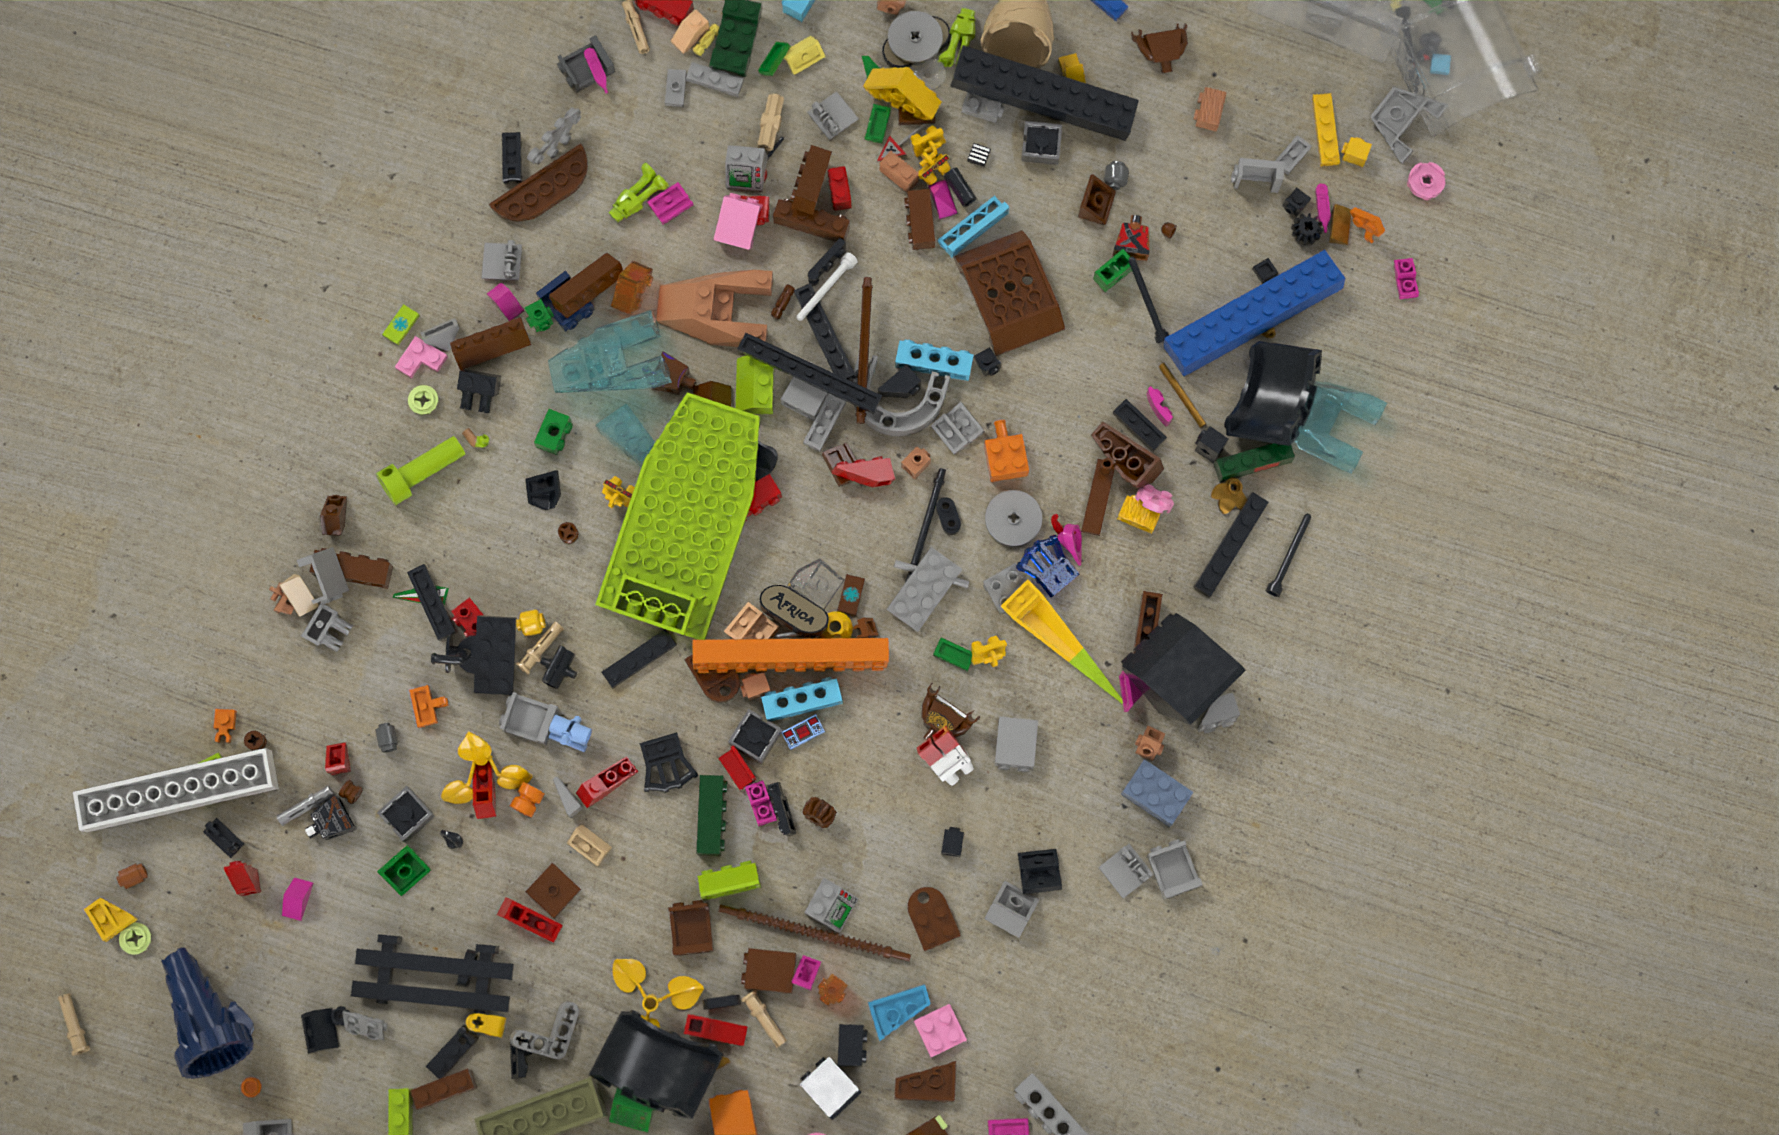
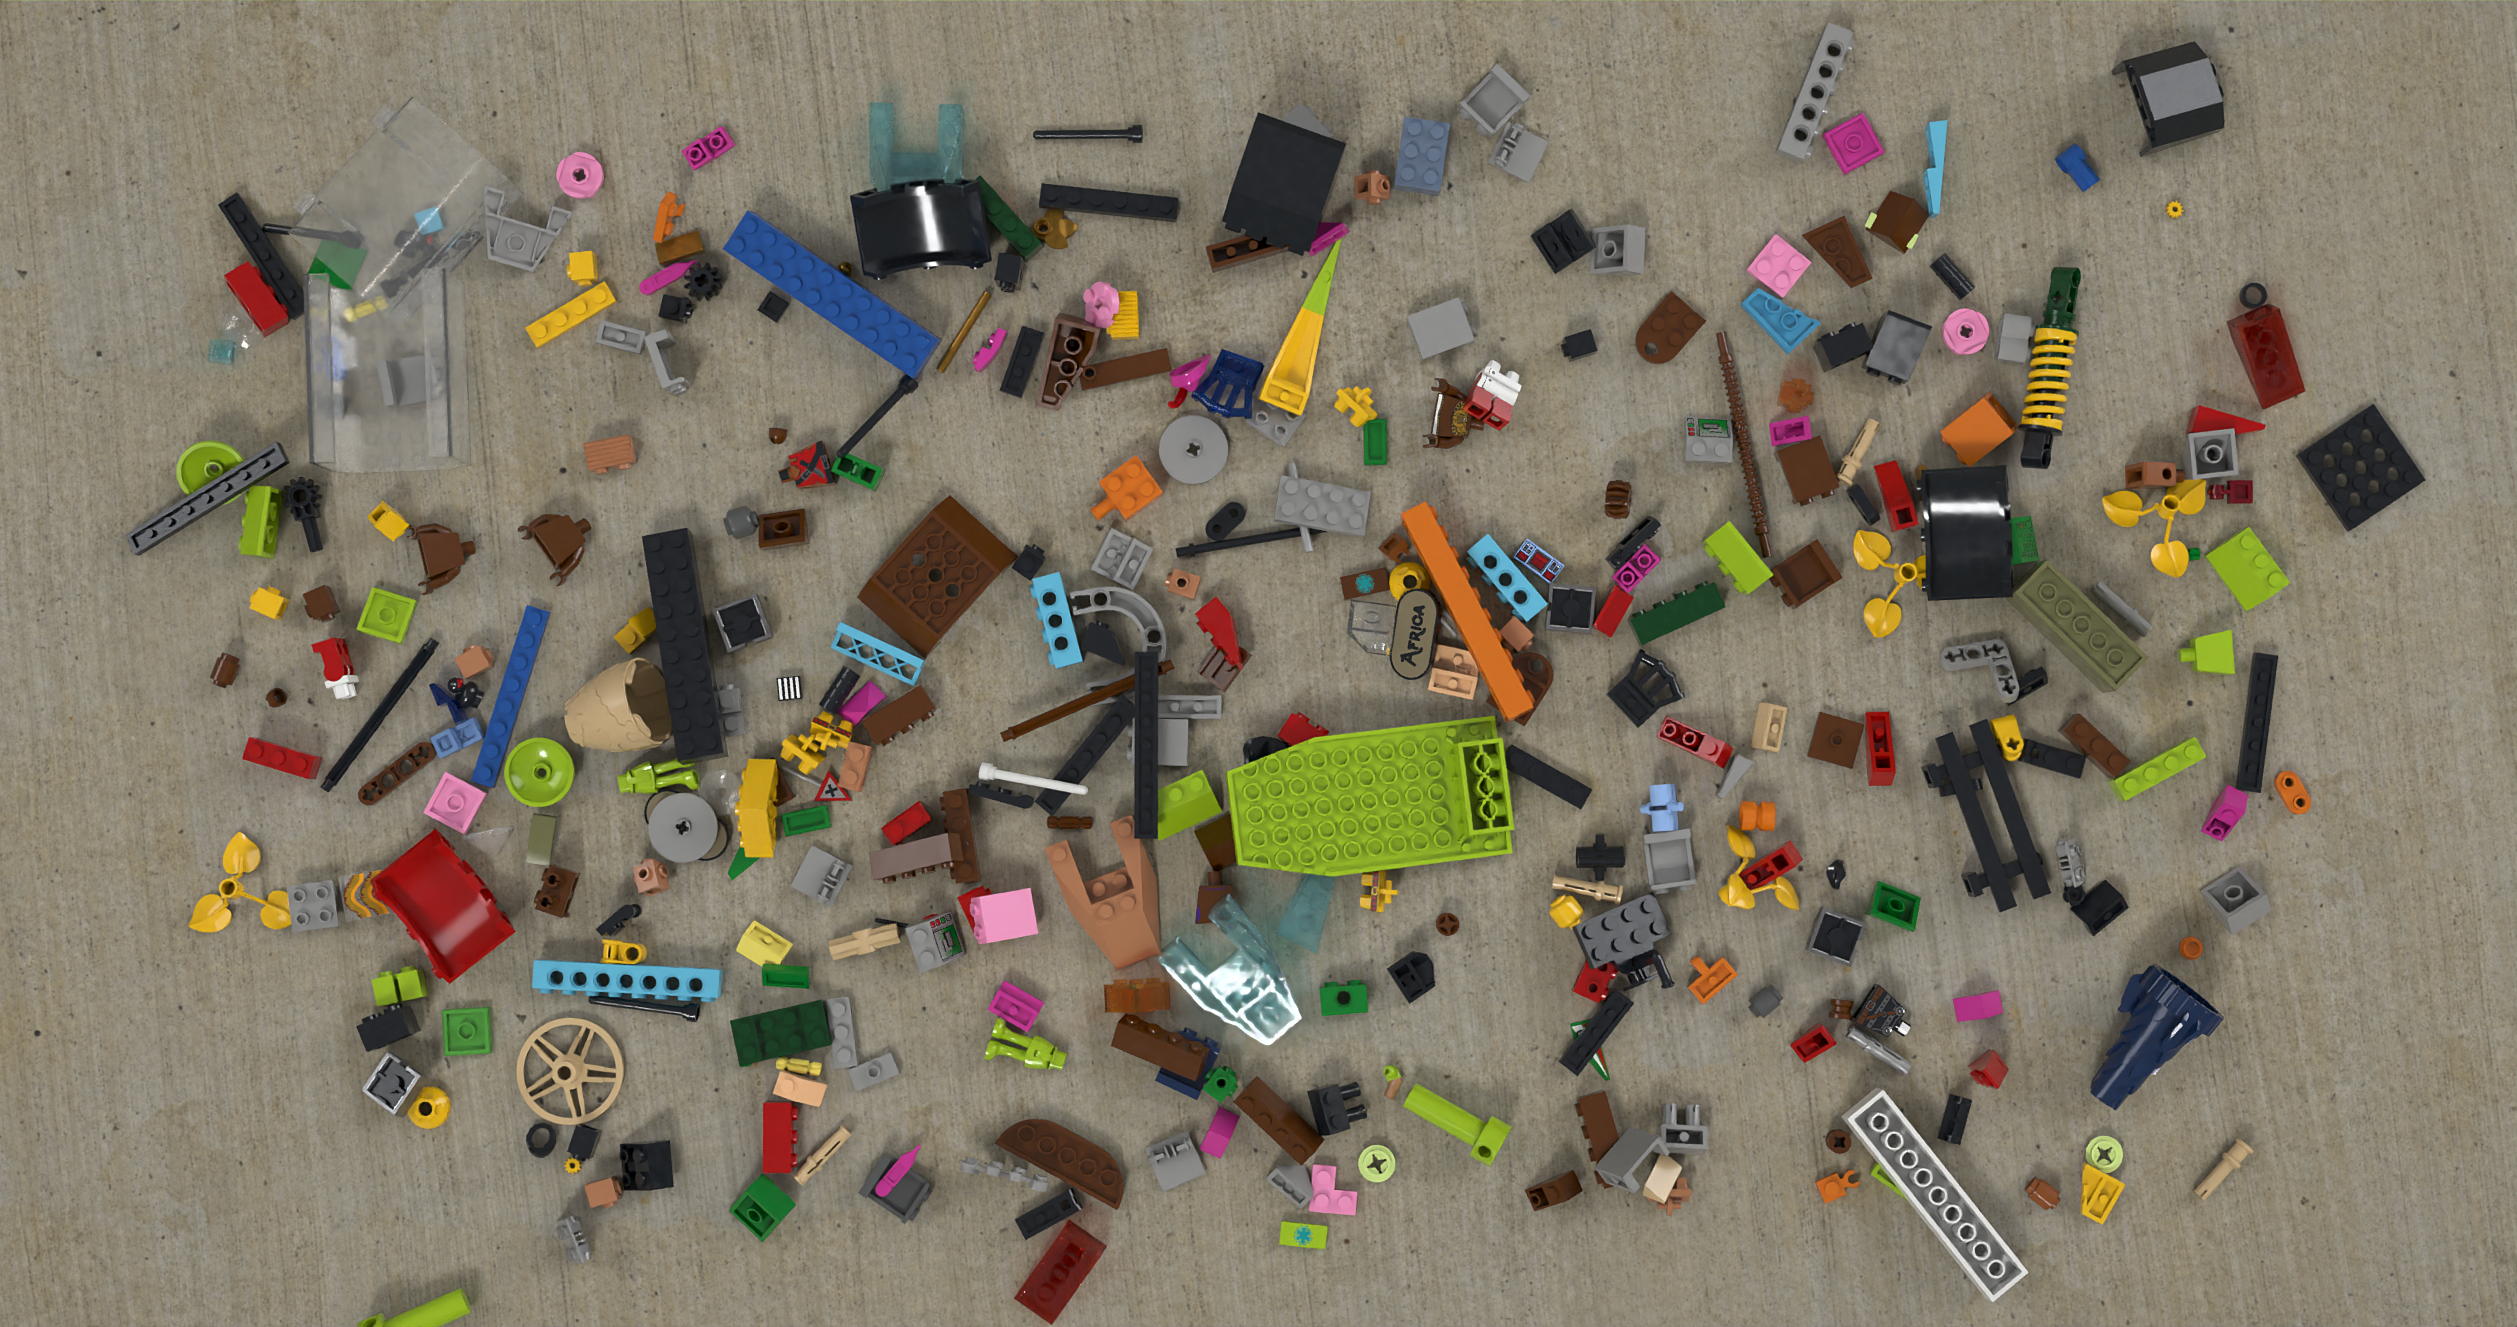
camera: 115 degrees left, 10 degrees up
(467, 147) = (1060, 1272): none -> clear red slope

